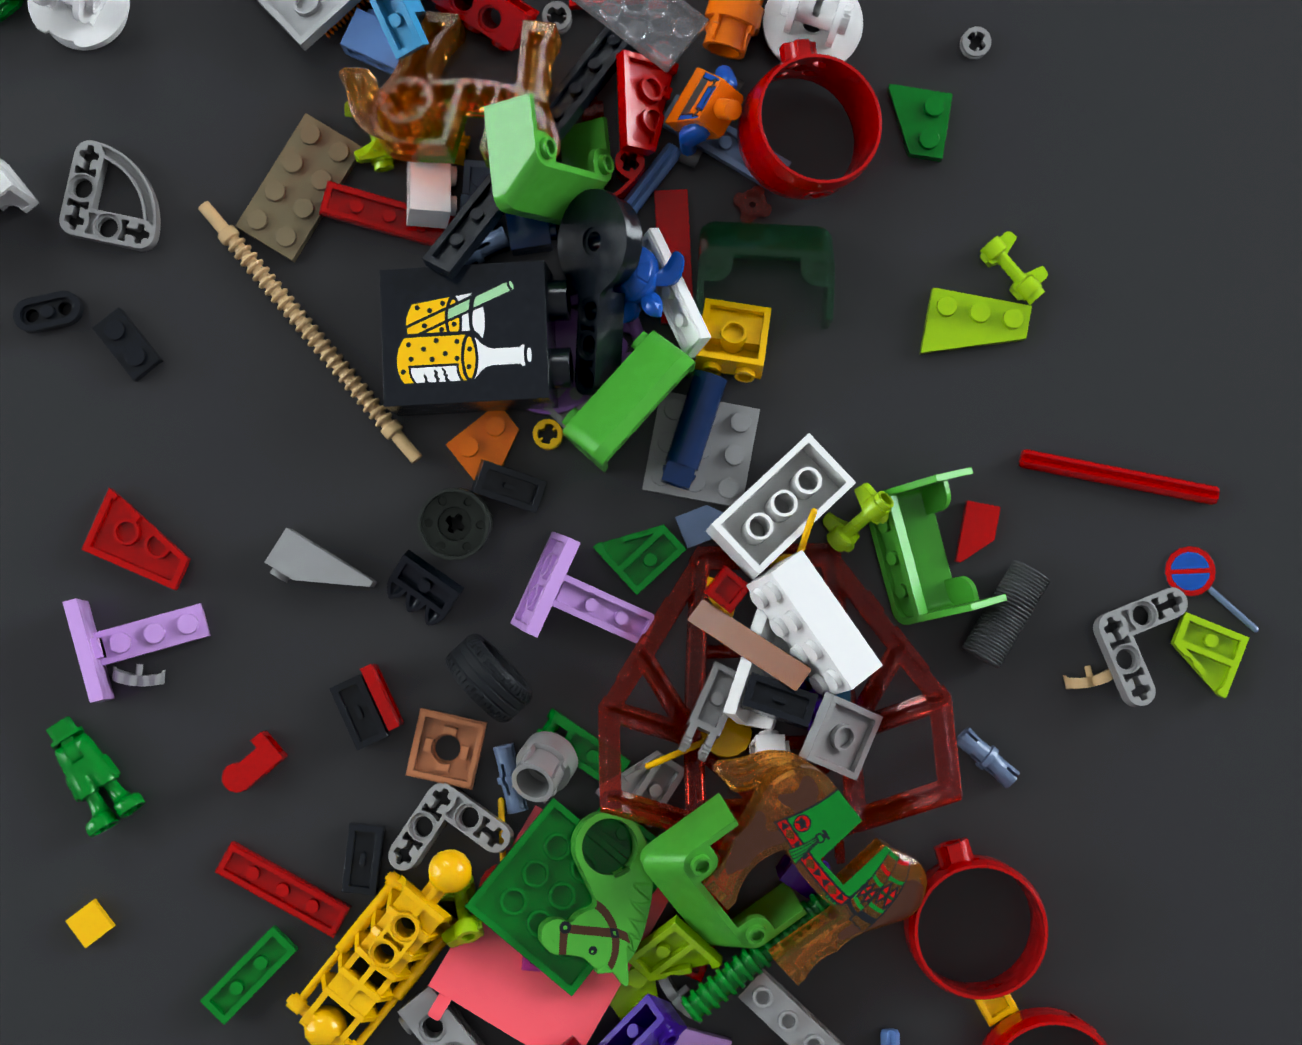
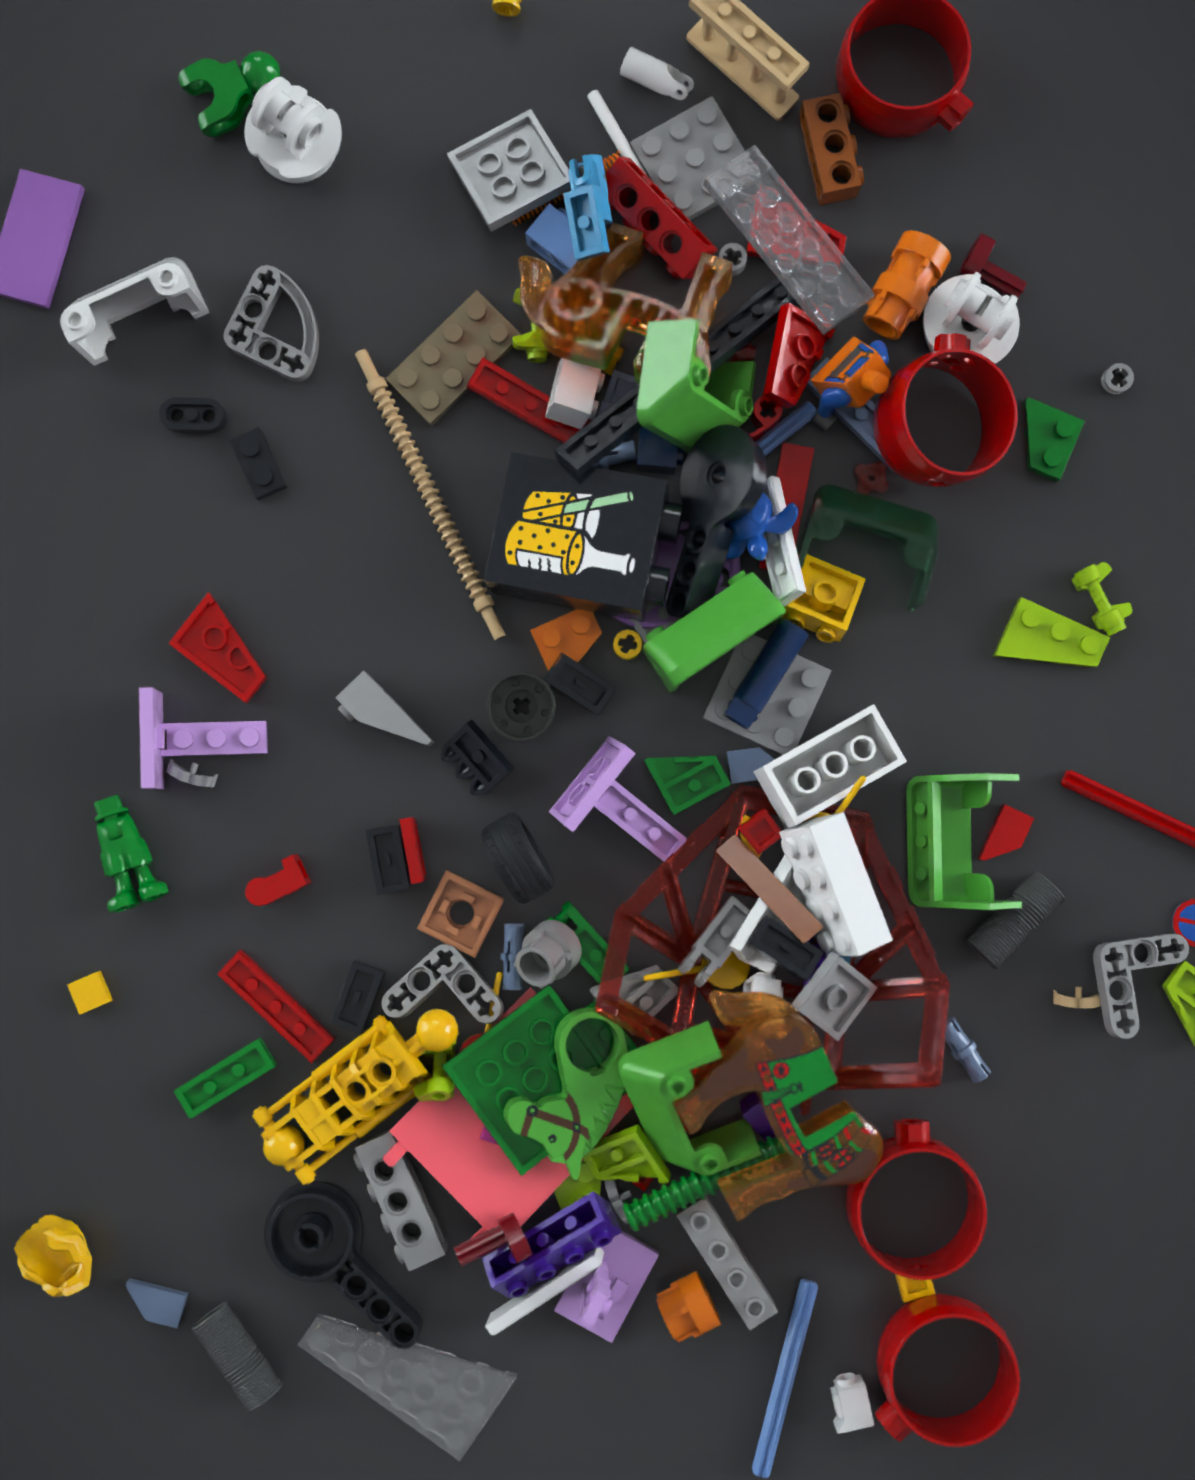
camera: 15 degrees right, 0 degrees up
(874, 508) = (917, 790): lime piece -> none

